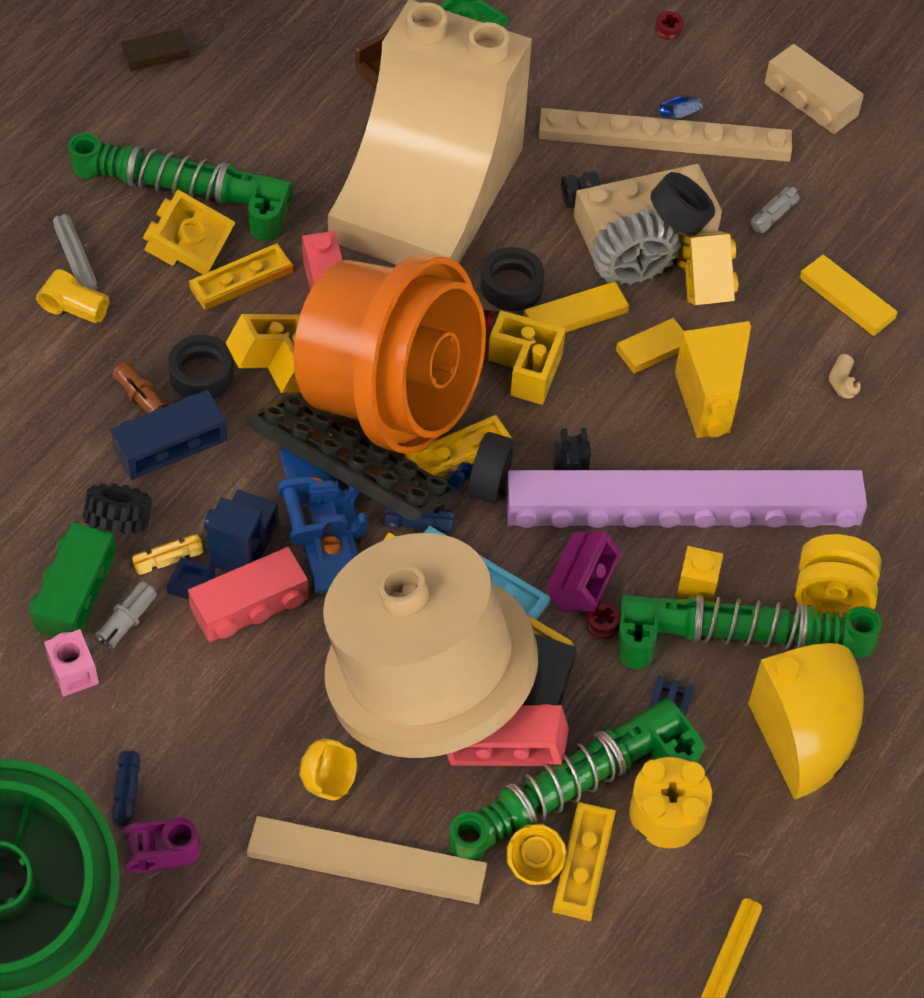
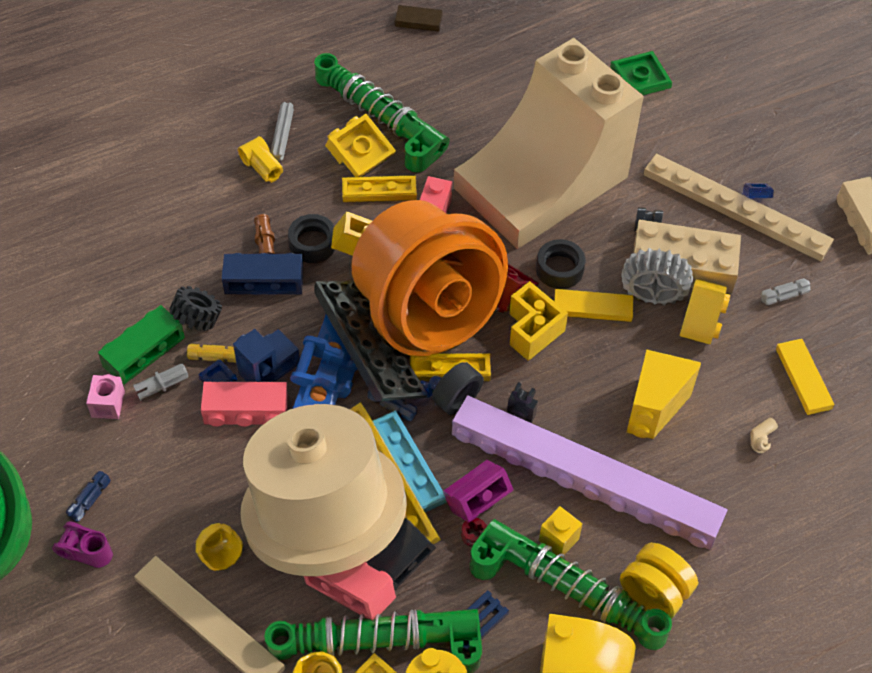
camera: 30 degrees right, 0 degrees up
(651, 345) = (630, 351): yellow tile -> none
(672, 18) = (788, 124): dark red bush -> none
(682, 203) = (694, 265): black tyre -> none

